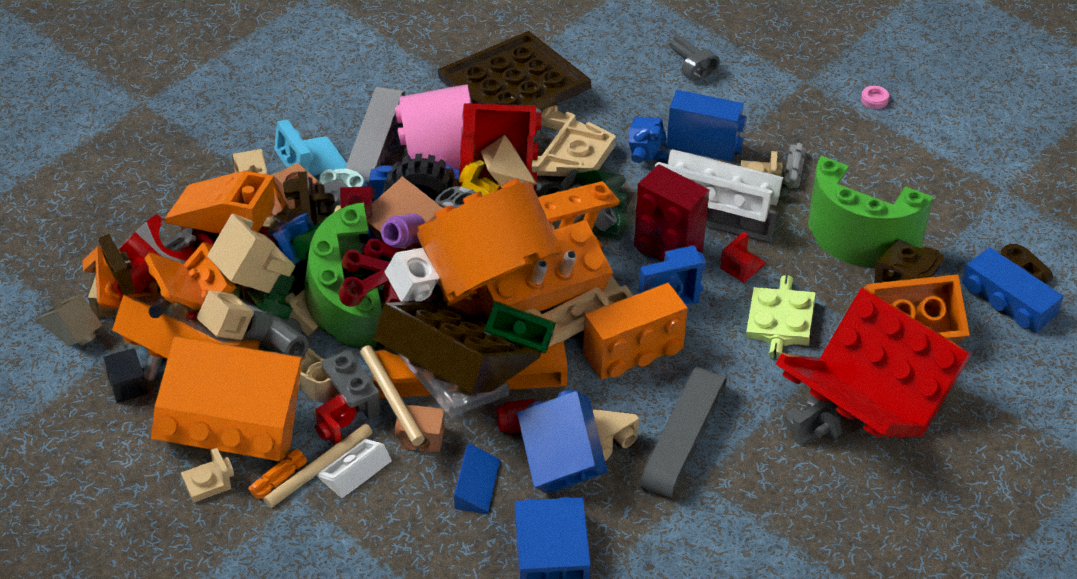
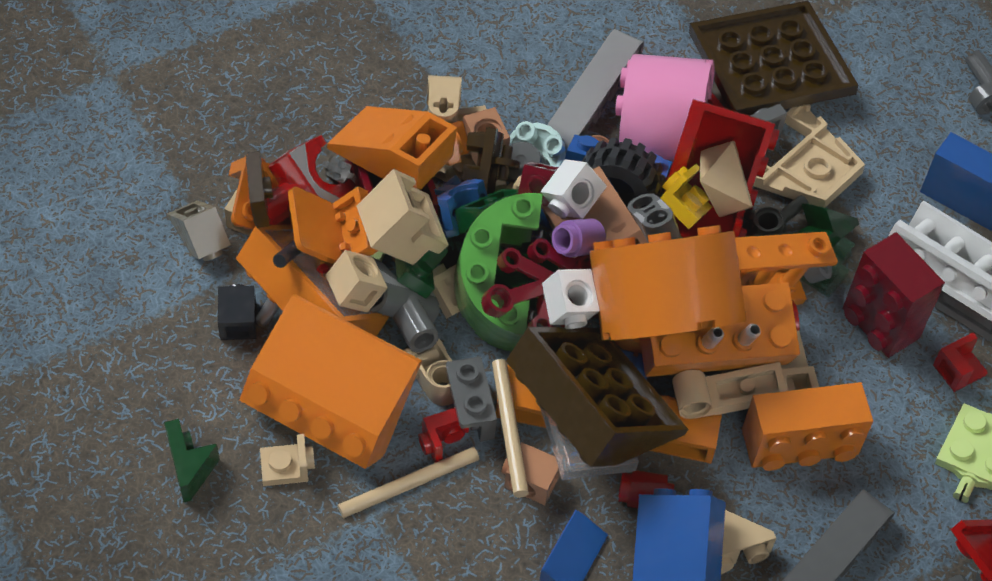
camera: 15 degrees right, 10 degrees up
(123, 500) = (190, 464): none -> dark green slope
(277, 474) = (361, 481): orange axle -> none
(312, 154) = (514, 95): medium azure bracket -> none
(355, 467) = (447, 496): white slope -> none
(387, 195) = (573, 189): none -> white brick
(520, 327) = (673, 394): dark green slope -> none
(645, 139) = (897, 177): blue piece -> none
(680, 269) = (879, 369): blue plate -> none

